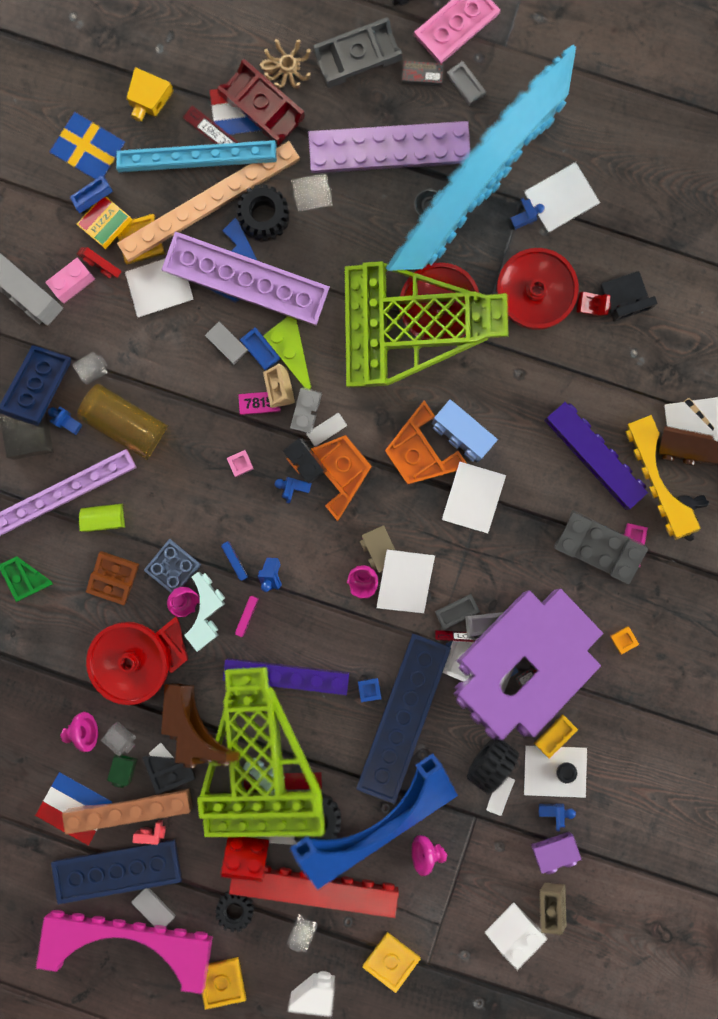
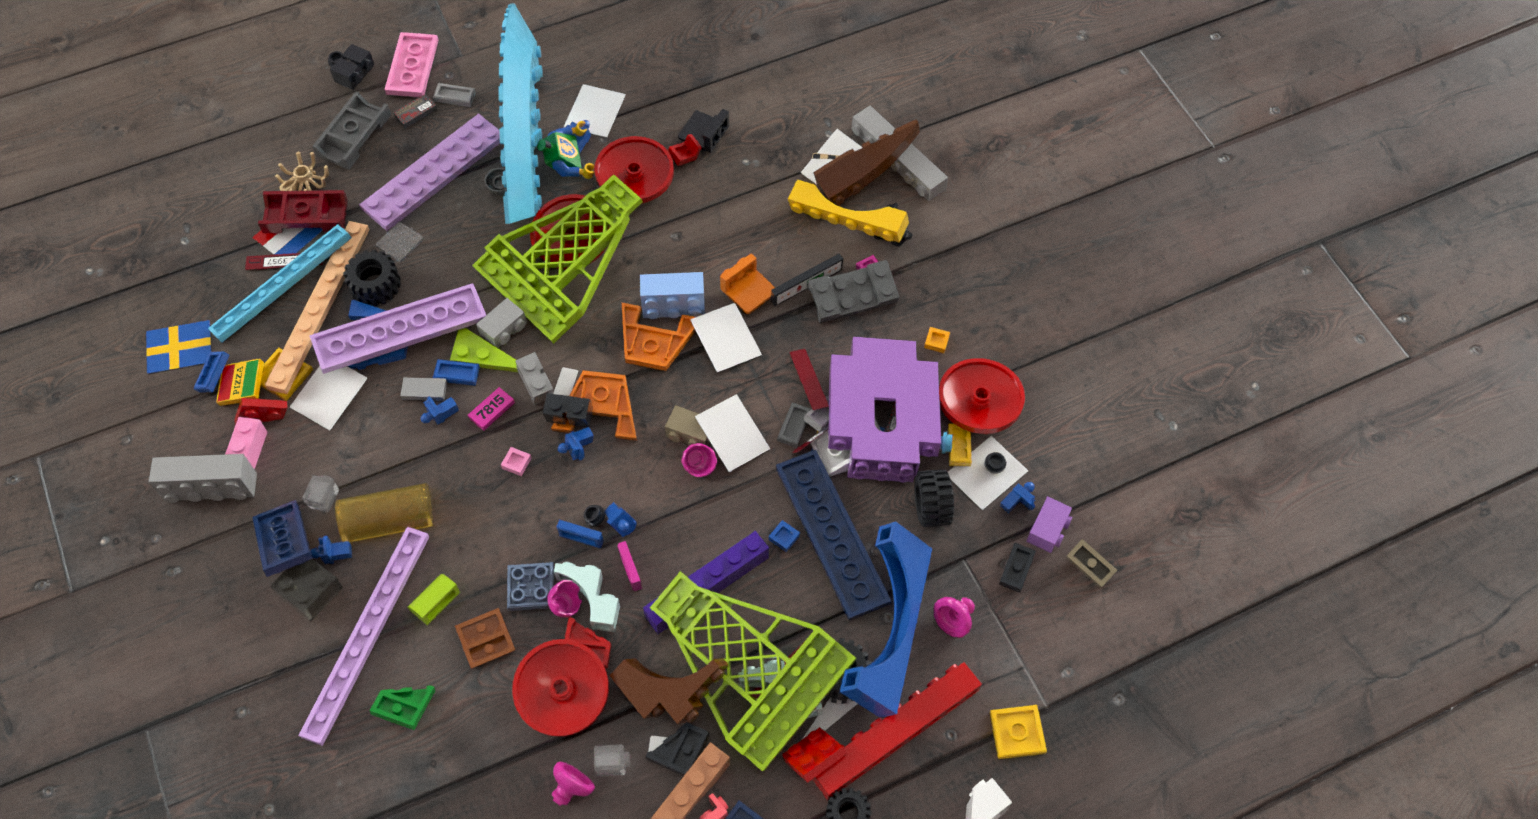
camera: 45 degrees left, 25 degrees down
(122, 770) = (637, 784): dark green brick -> none
(147, 94) = (201, 271): yellow torso -> none
(218, 373) = (438, 412): none -> blue piece
(257, 555) = (594, 515): none -> black plate
(278, 386) = (495, 383): tan slope -> none
(301, 934) = (923, 776): clear brick -> none
(323, 339) = (501, 323): none -> light grey piece
(495, 224) = (562, 152): none -> torso
(499, 797) = (965, 526): white sticker -> none
(500, 587) = (809, 379): none -> dark red sticker
(503, 859) = (1017, 567): none -> black plate
(515, 935) = (1088, 614): white slope -> none
(528, 470) = (746, 285): none -> orange bracket
(545, 731) = (946, 443): none -> medium azure plate
(577, 504) = (799, 283): none -> black tile
(596, 456) = (786, 239): dark purple brick -> none
(607, 718) = (981, 396): none -> red dish

